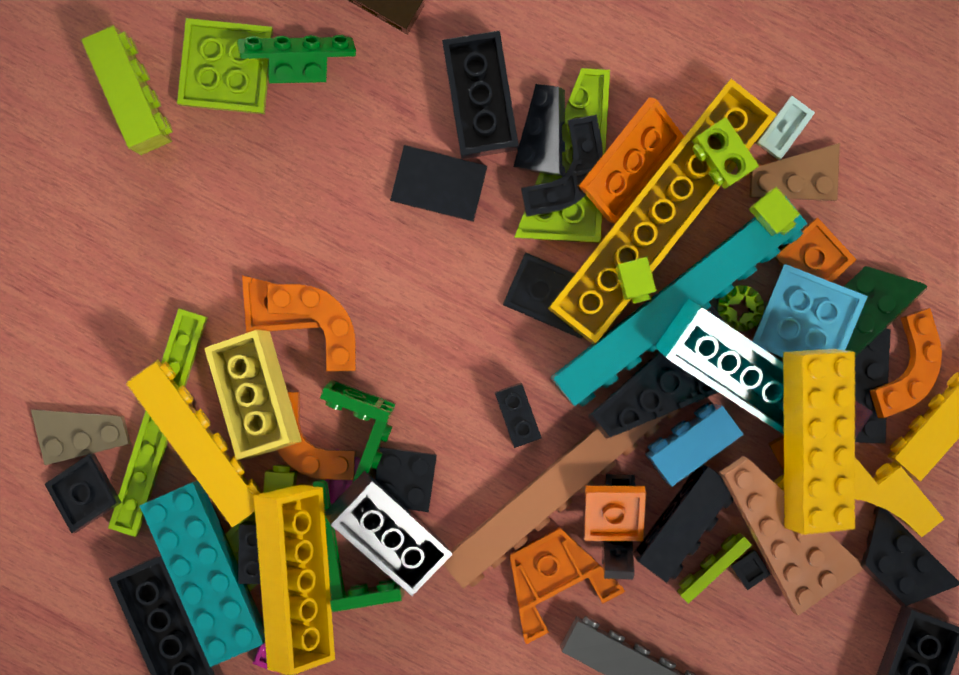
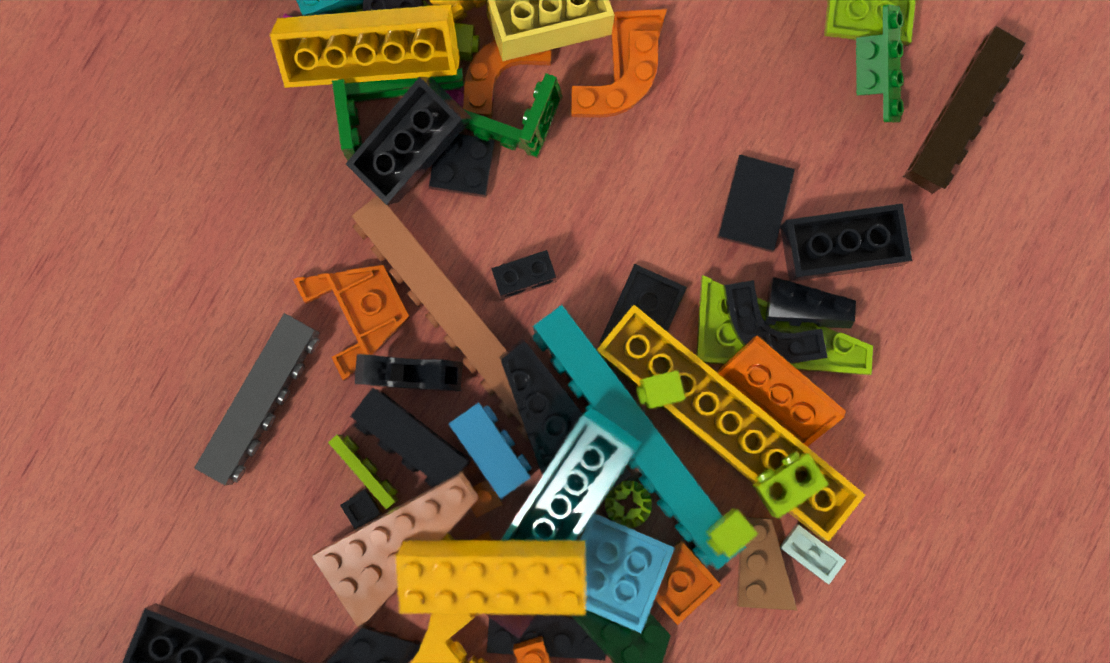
camera: 85 degrees right, 5 degrees down
(614, 513) = (422, 366): orange plate -> none
(737, 449) = (487, 499): none -> orange plate

